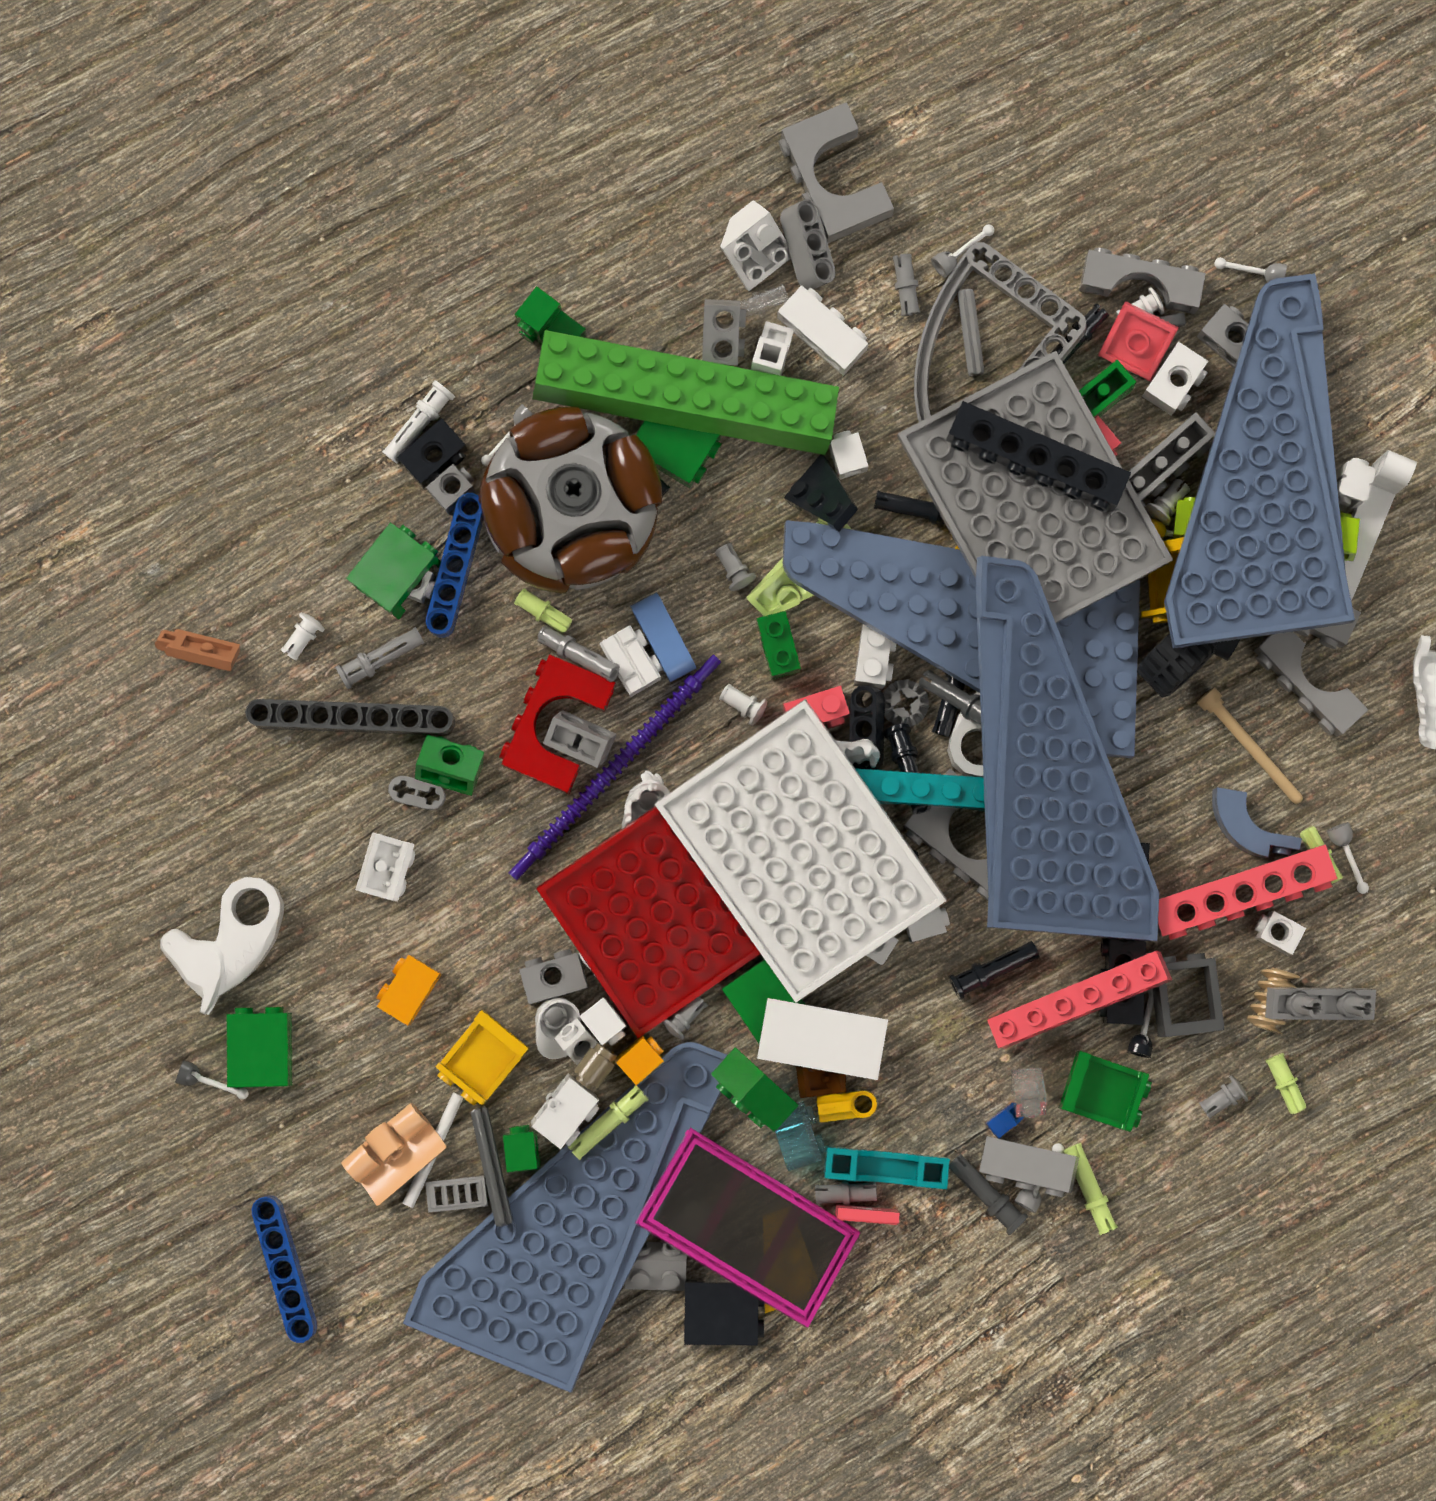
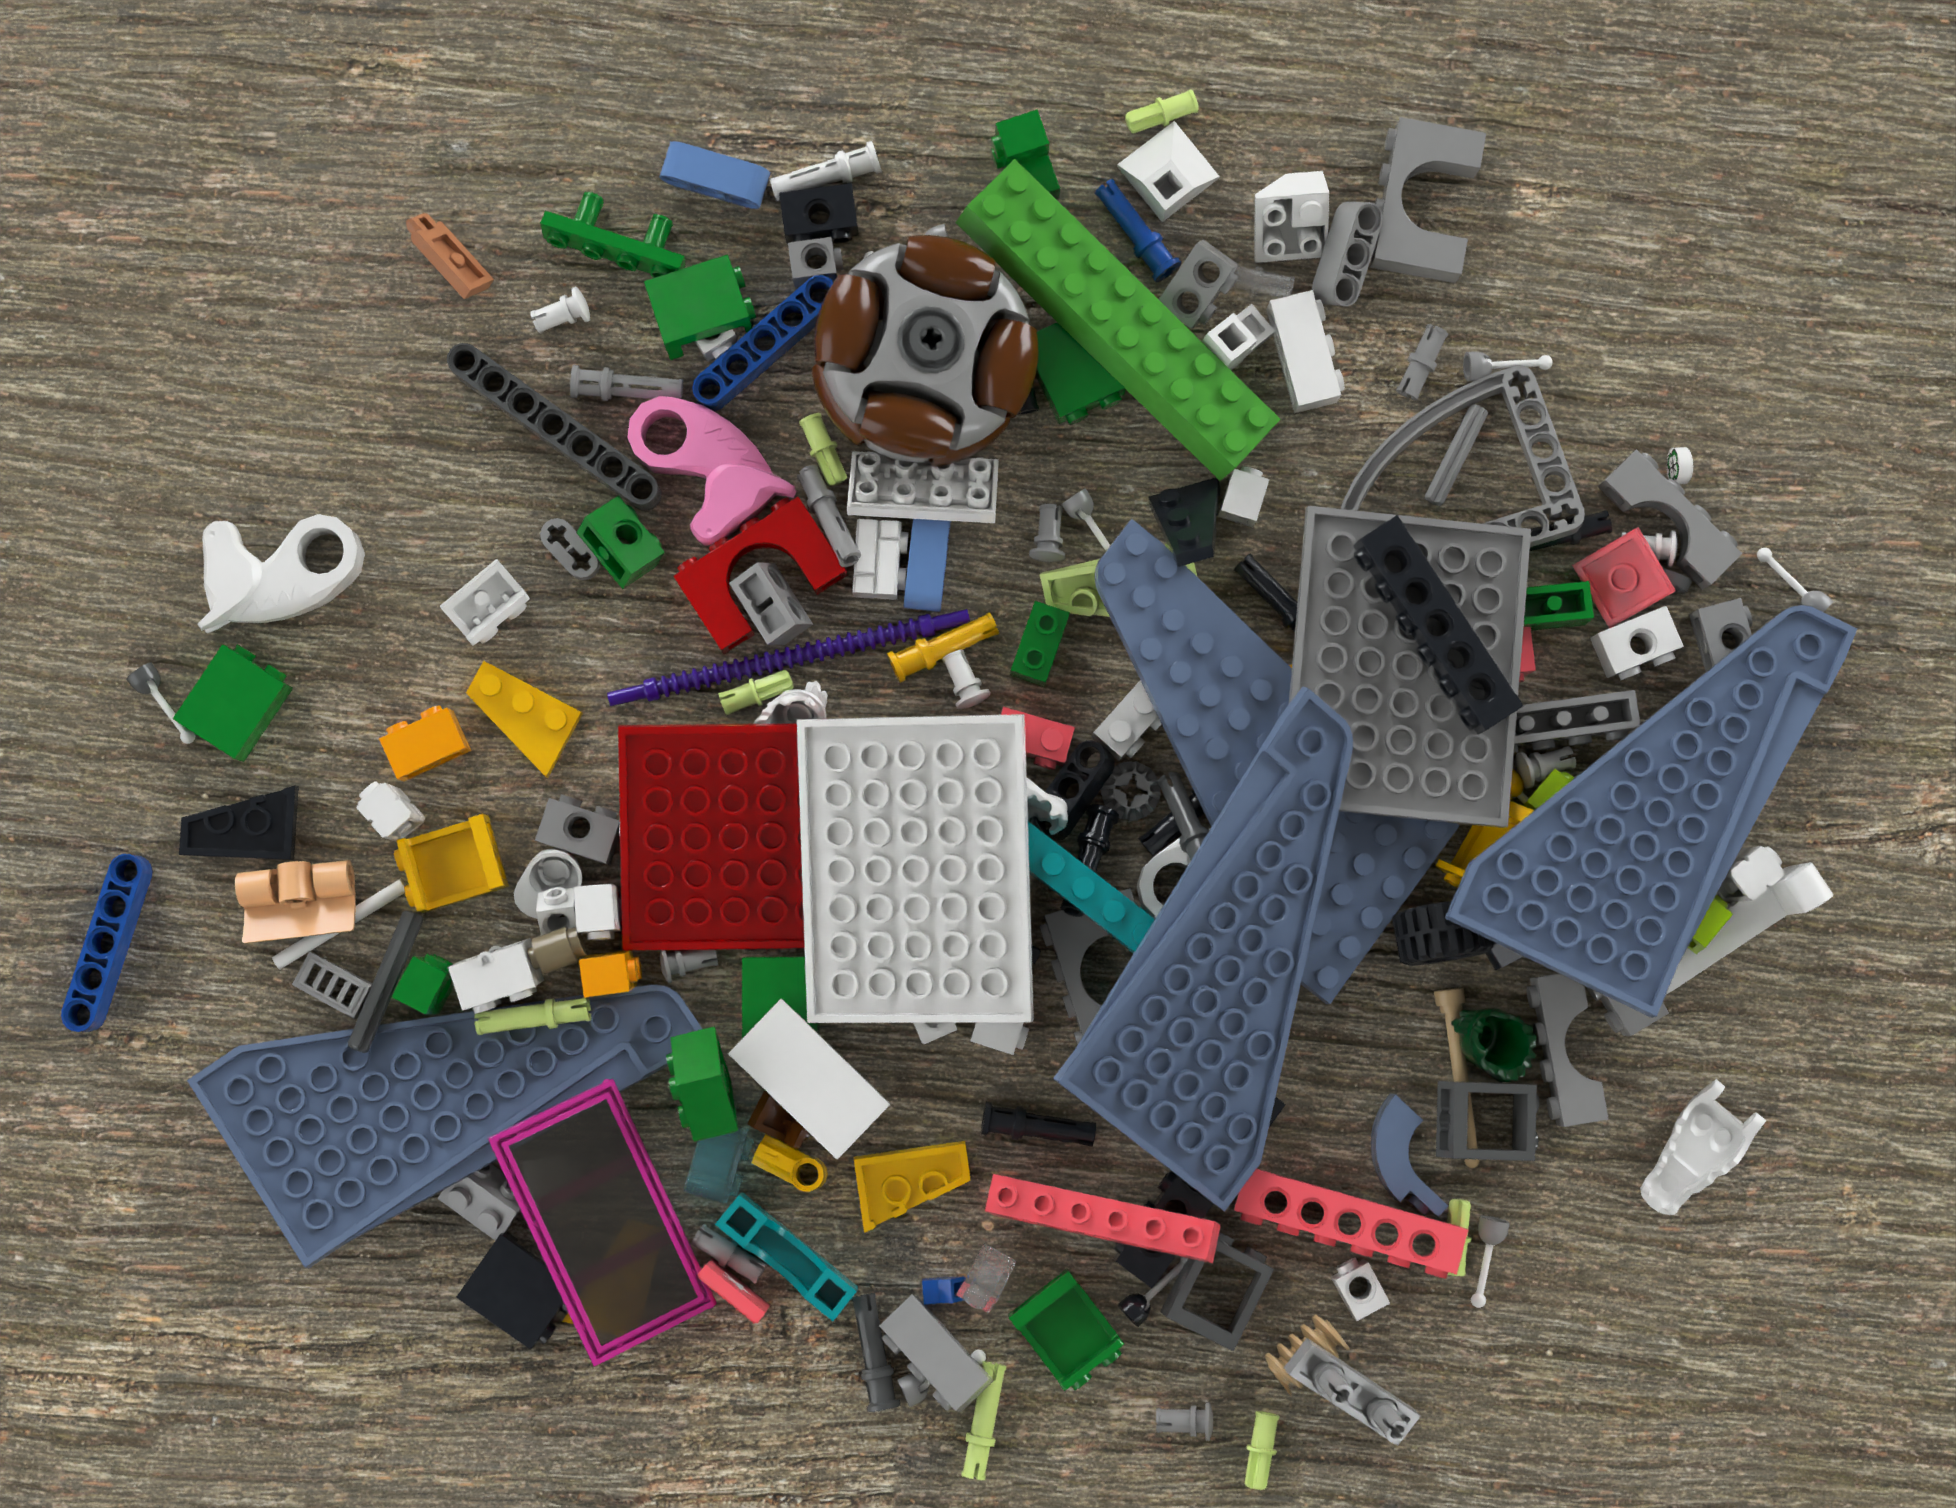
camera: 30 degrees right, 0 degrees up
(296, 572) = (599, 243): none -> green plate
(327, 1128) = (248, 829): none -> black wing
(343, 473) = (715, 175): none -> medium blue beam
(417, 1050) = (389, 811): none -> white brick
(465, 924) = (525, 715): none -> yellow wing
(471, 660) = (715, 449): none -> bright pink animal
(608, 805) = (755, 691): none -> yellowish green axle
(617, 230) = (1162, 111): none -> yellowish green axle
(630, 594) = (921, 491): none -> white tile
(648, 268) = (1168, 171): none -> white slope
(668, 326) = (1147, 243): none -> blue pin
(705, 703) = (926, 653): none -> yellow pin
(743, 534) = (1080, 508): none -> light grey hinge
(929, 1063) = (907, 1177): none -> yellow wing
(1124, 240) = (1680, 465): none -> white tile
(1260, 708) = (1496, 1042): none -> dark green hair
(1267, 779) = (1453, 1121): none -> dark grey window

